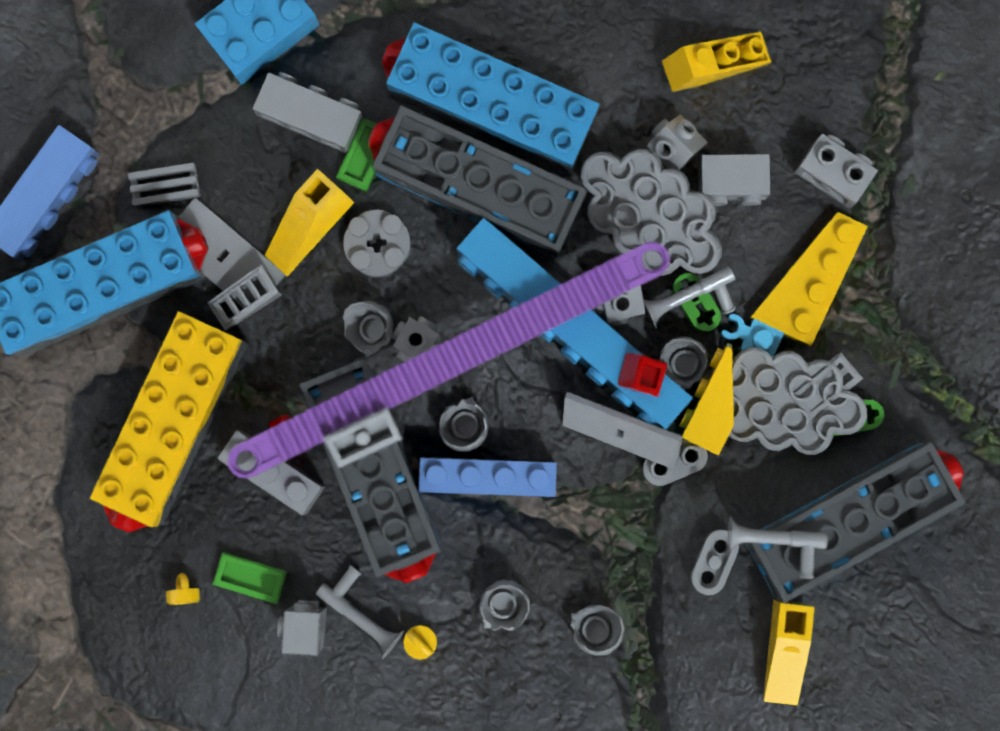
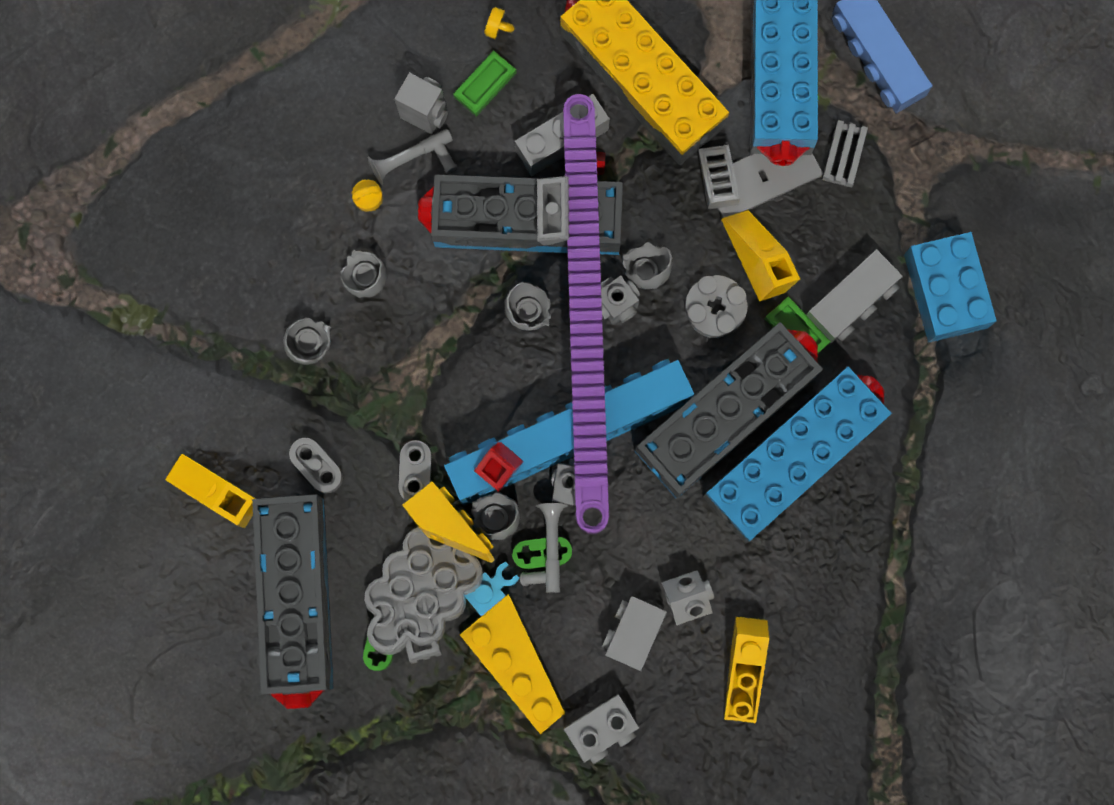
camera: 120 degrees right, 5 degrees down
(487, 477) = (475, 307): medium blue brick -> none
(638, 436) = (461, 433): light grey piece -> none
(651, 204) = (638, 548): light grey plate -> none
(806, 540) = (295, 539): light grey piece -> none

